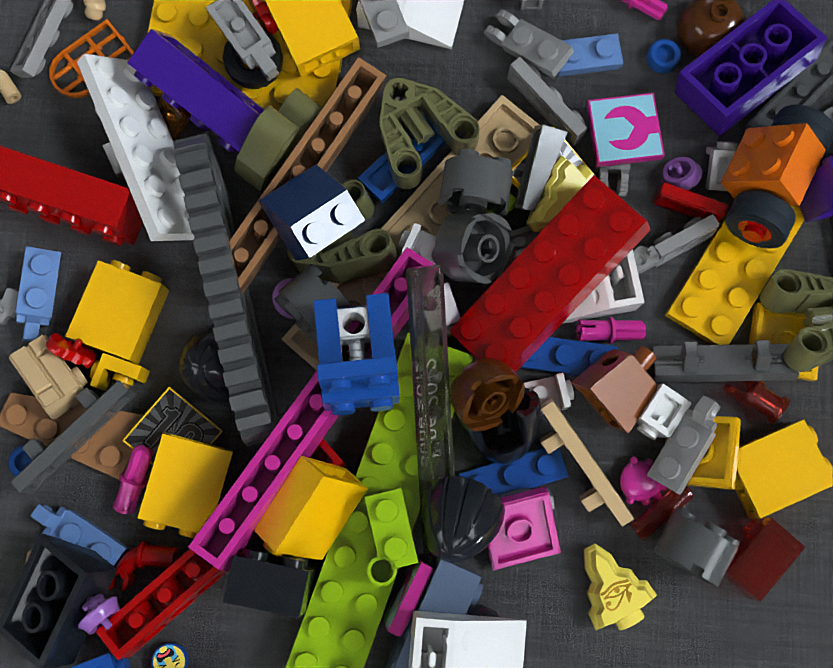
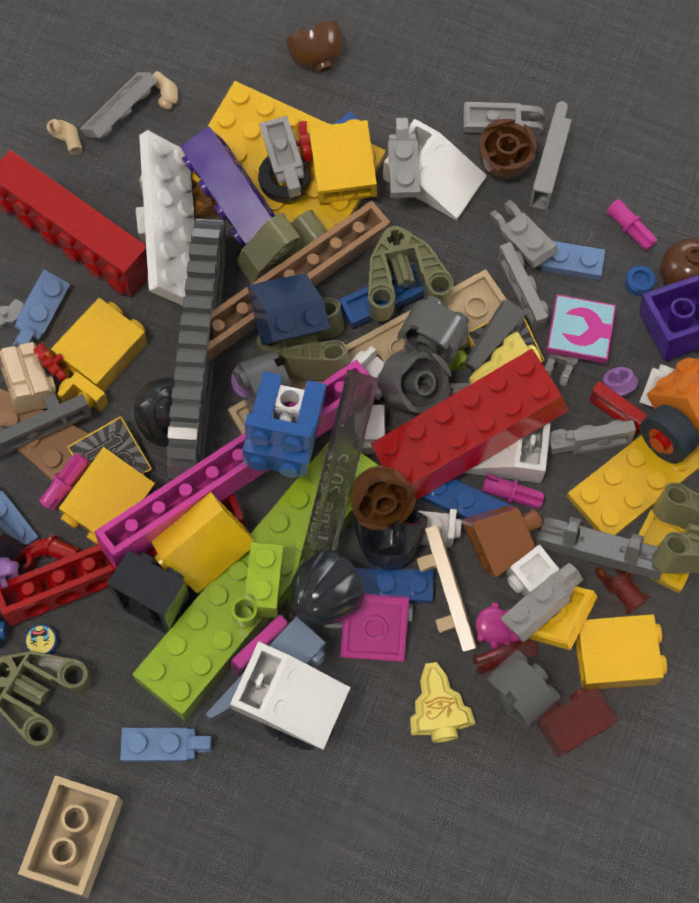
camera: 20 degrees right, 10 degrees down
(73, 63) = (132, 138): orange window -> none

